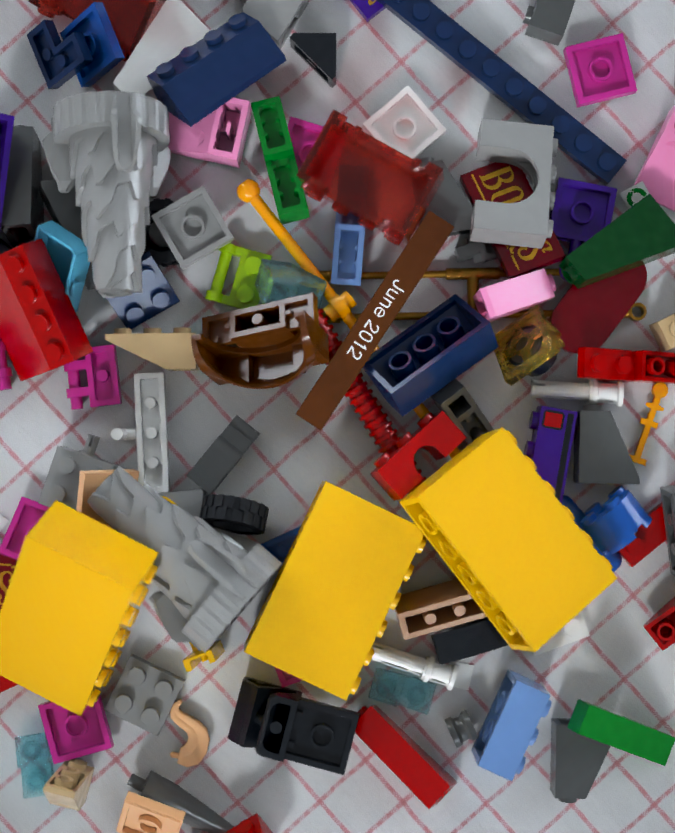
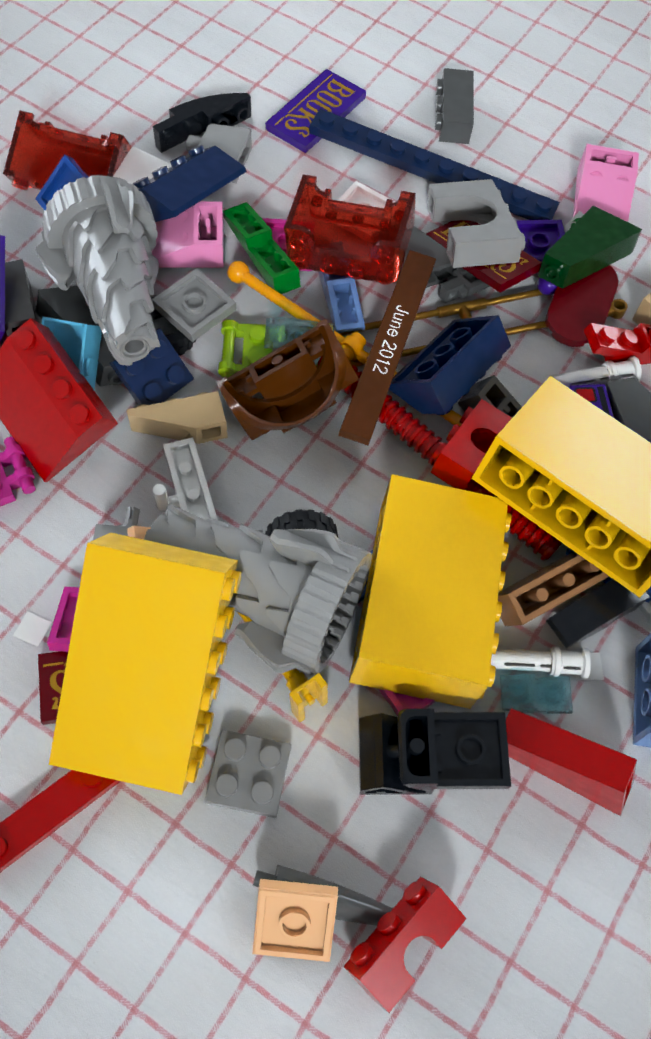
camera: 25 degrees left, 25 degrees down
(35, 763) = (133, 896): clear light blue slope -> none
(58, 58) = (29, 208): dark blue plate -> none
(69, 784) = (182, 897): tan slope -> none
(73, 735) = (174, 831): dark pink plate -> none
(101, 376) = (131, 459): dark pink plate -> none
(198, 737) = (324, 809): light nougat piece -> none
(223, 455) = (273, 496): dark grey piece -> none
(318, 52) = (270, 173): black slope -> none
(461, 728) = (615, 715): dark grey wheel -> none
(514, 295) = (510, 298): bright pink slope -> none
(527, 348) = (538, 341): clear yellow piece -> none
(600, 70) = (510, 148): dark pink plate -> none

